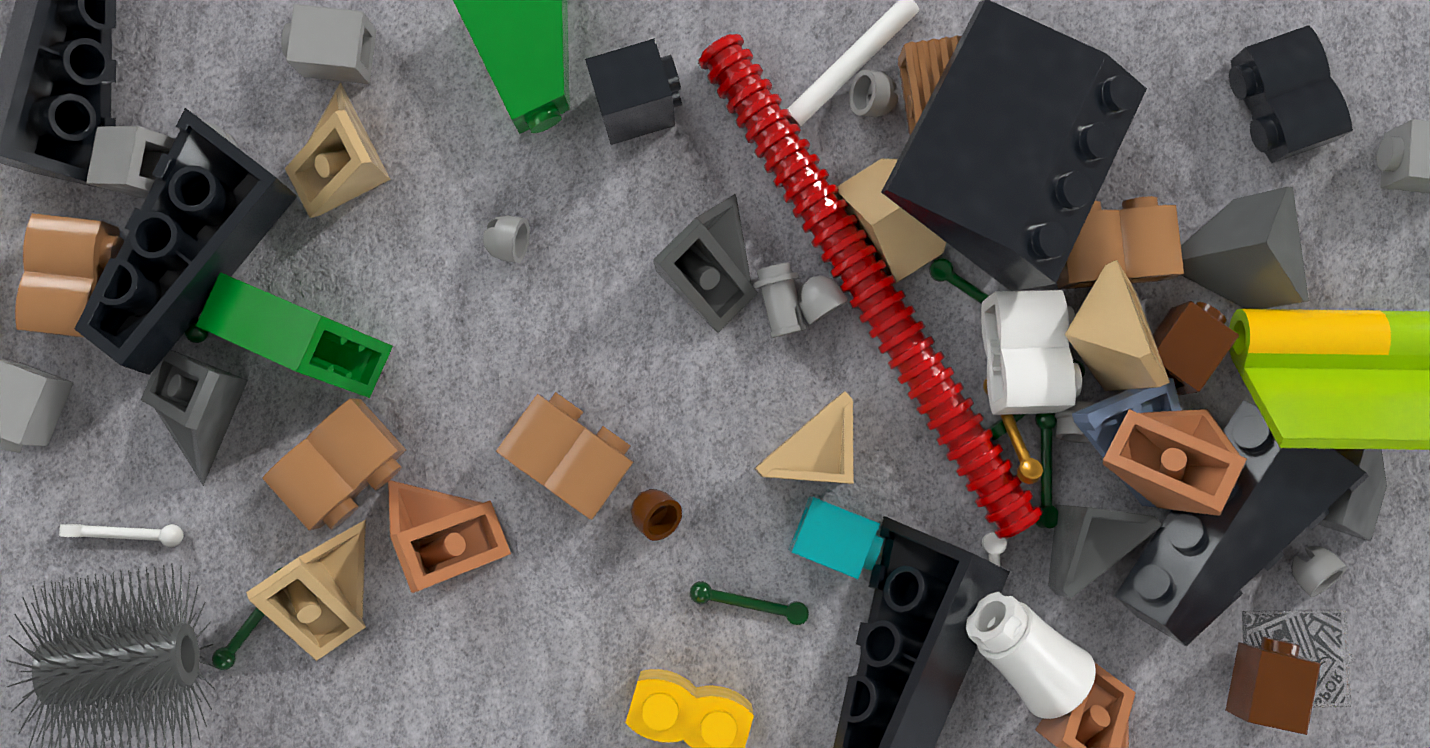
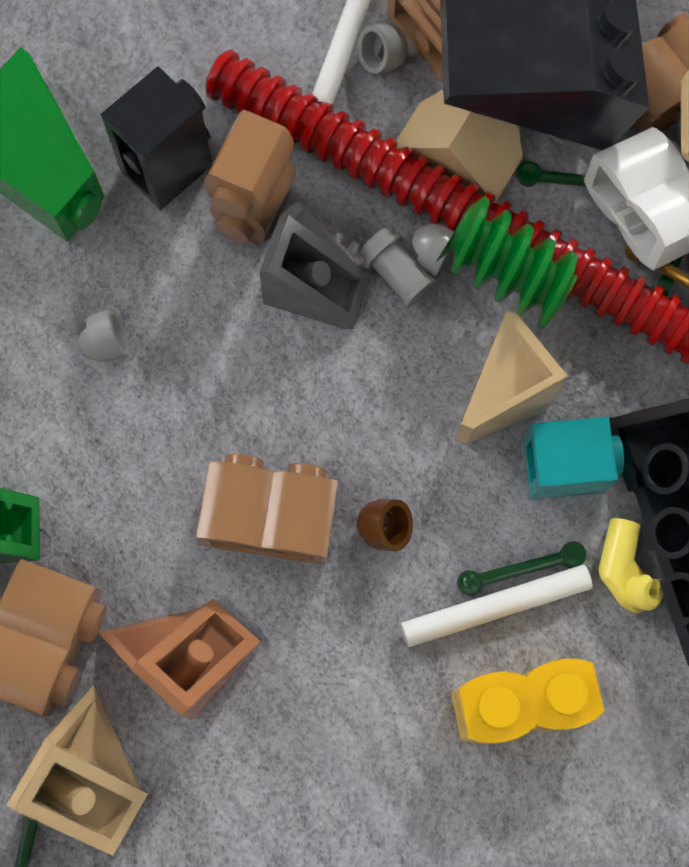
camera: 25 degrees left, 10 degrees down
(690, 167) = (250, 177): none -> medium nougat brick
(712, 622) = (496, 605): none -> white bar
(827, 649) = (622, 574): none -> light yellow arm
(869, 353) = (512, 261): none -> green piece

